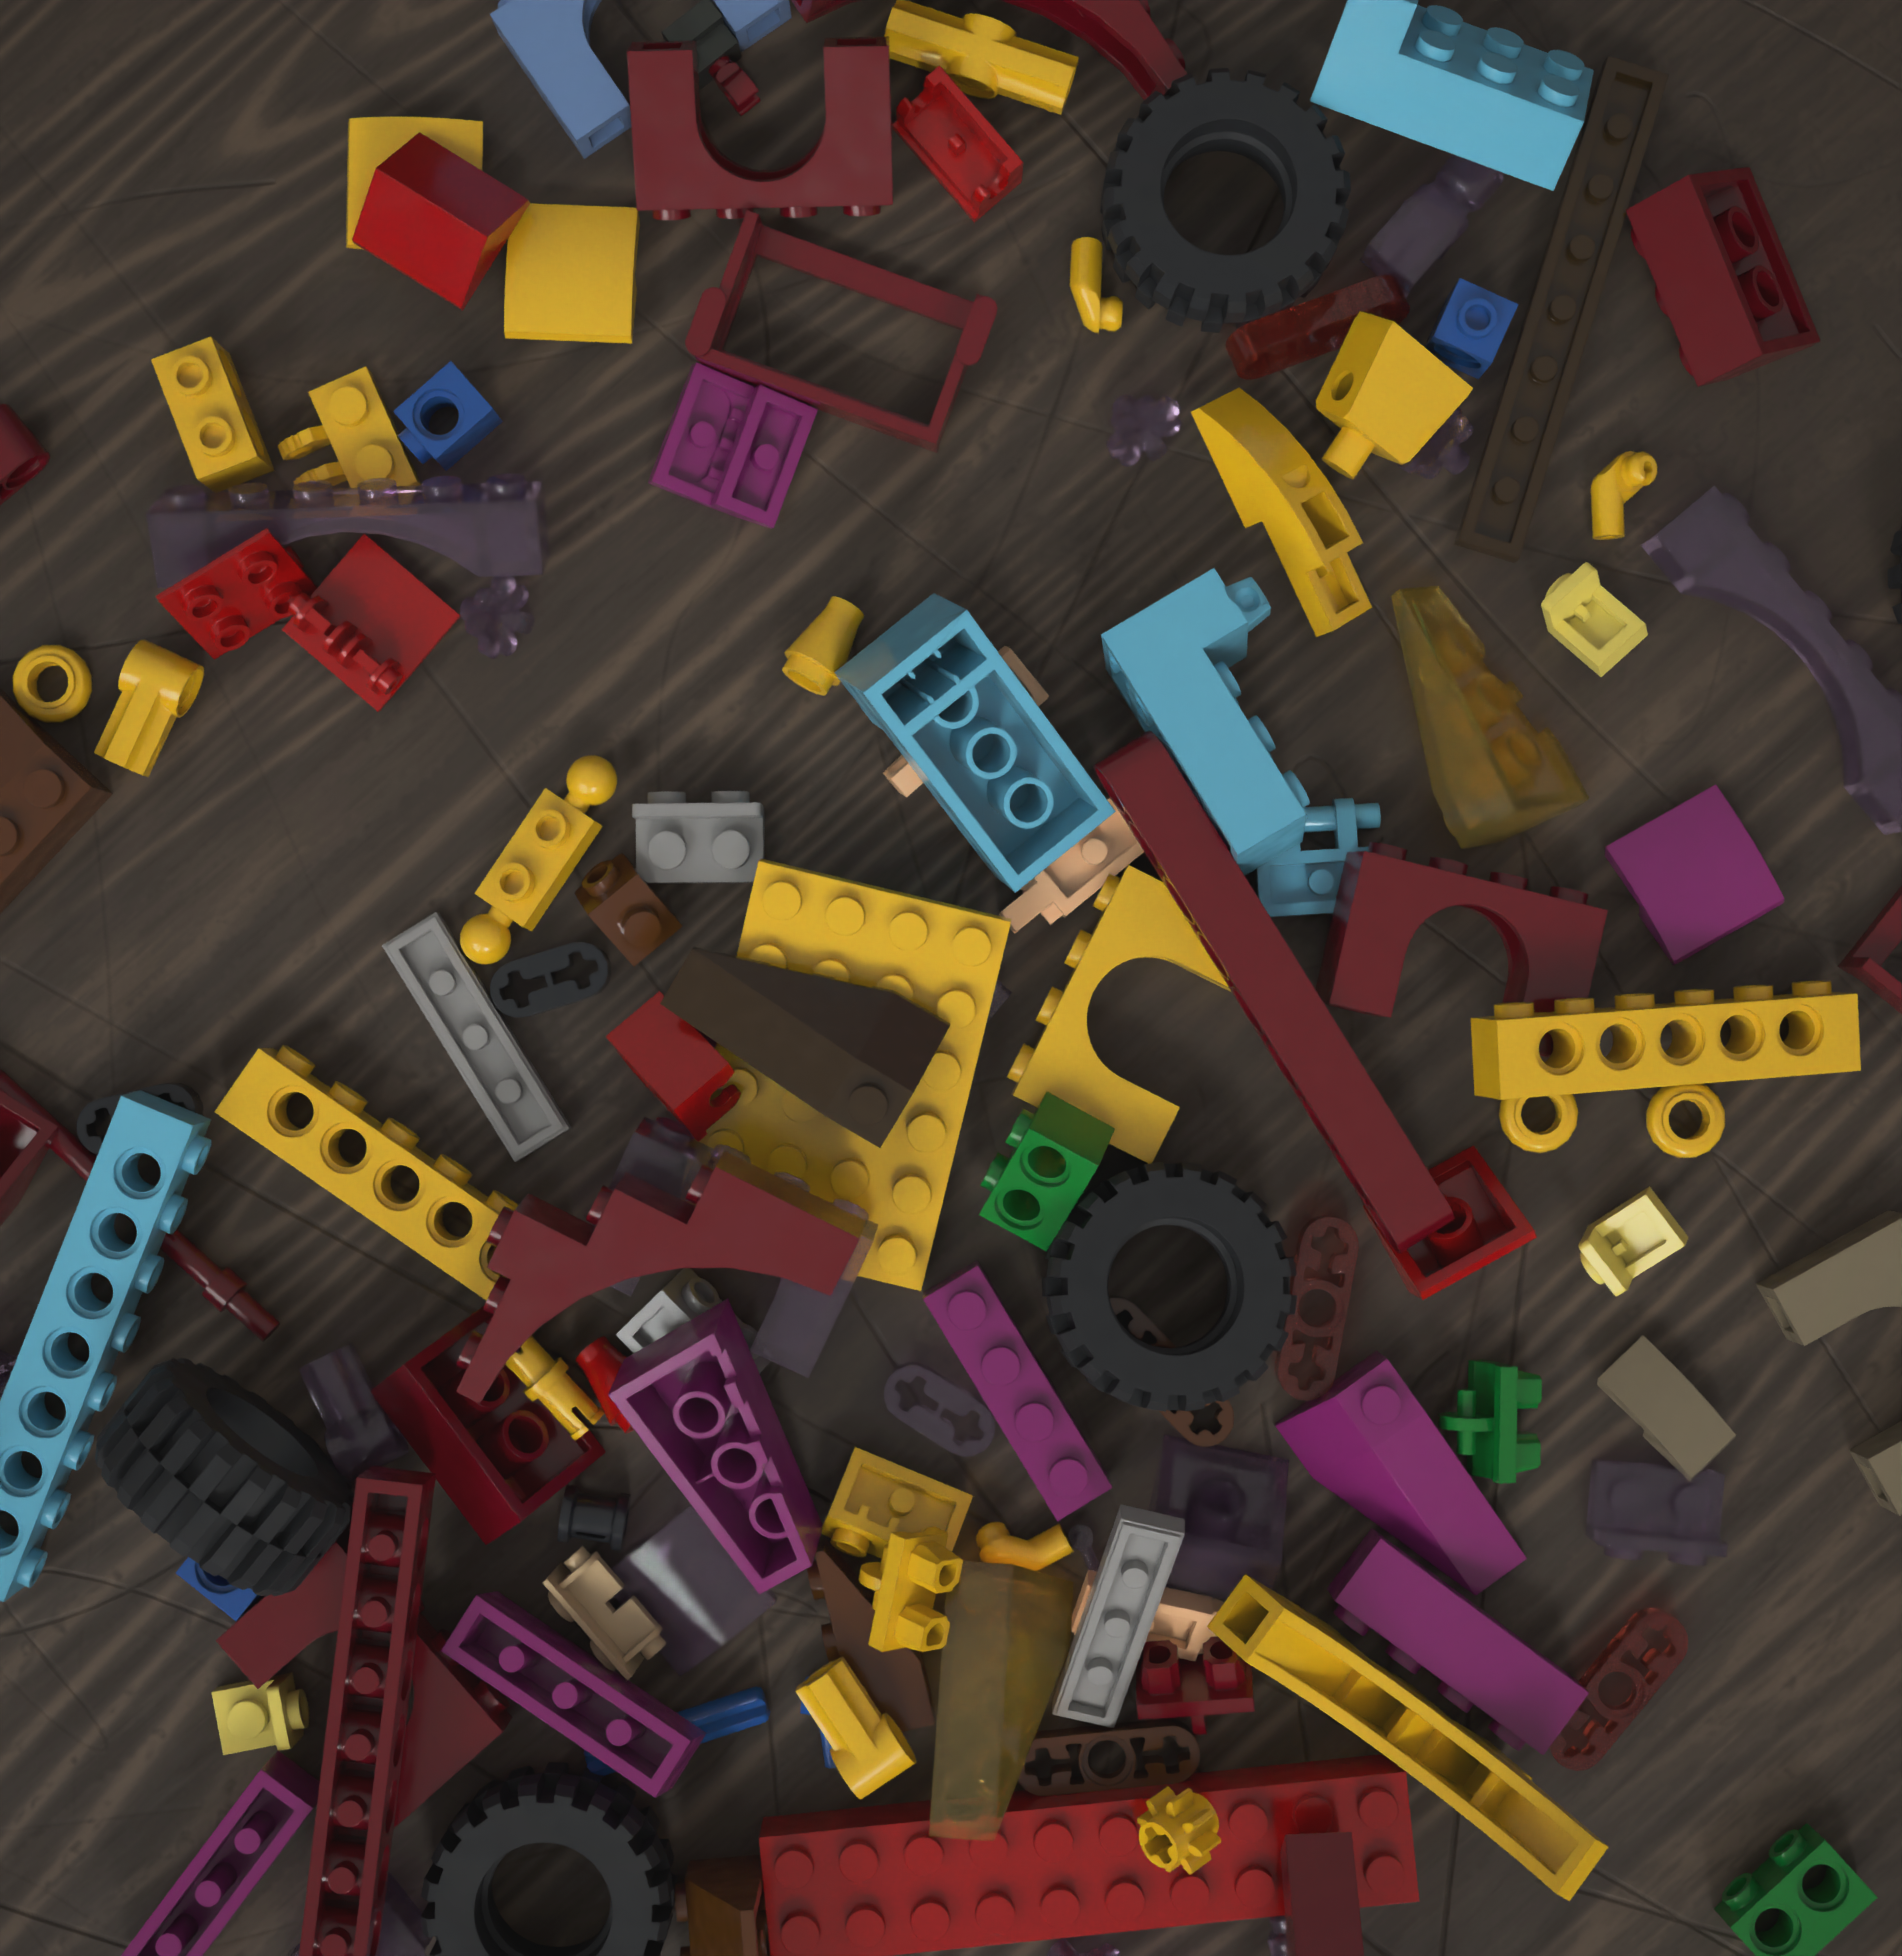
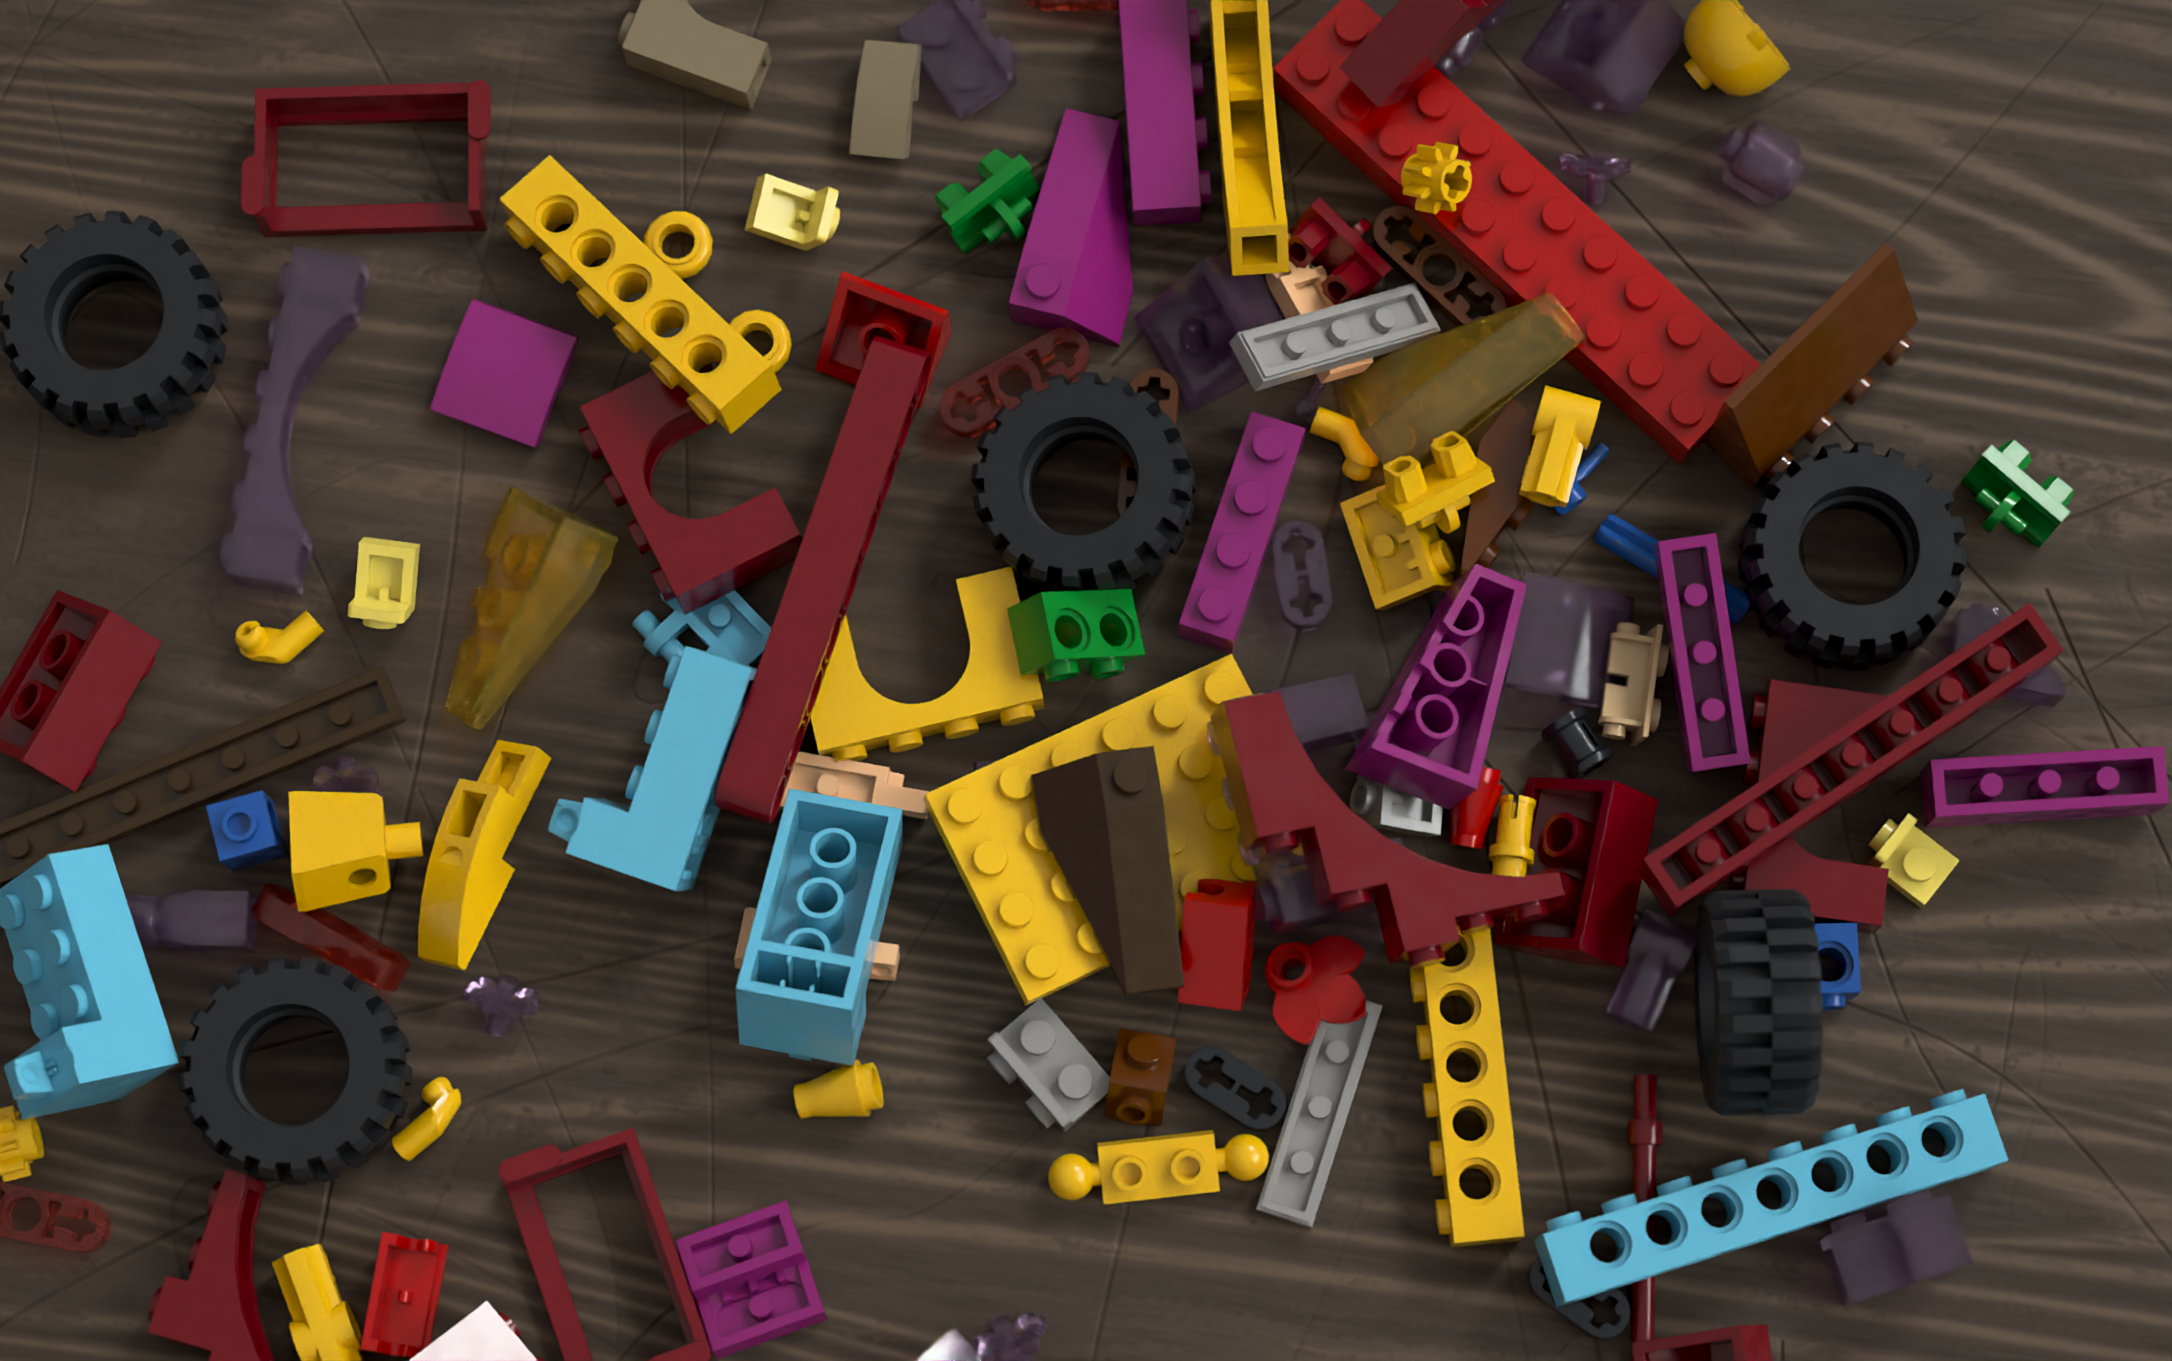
camera: 125 degrees left, 10 degrees down
(567, 1119) = (1321, 992): none -> red plate

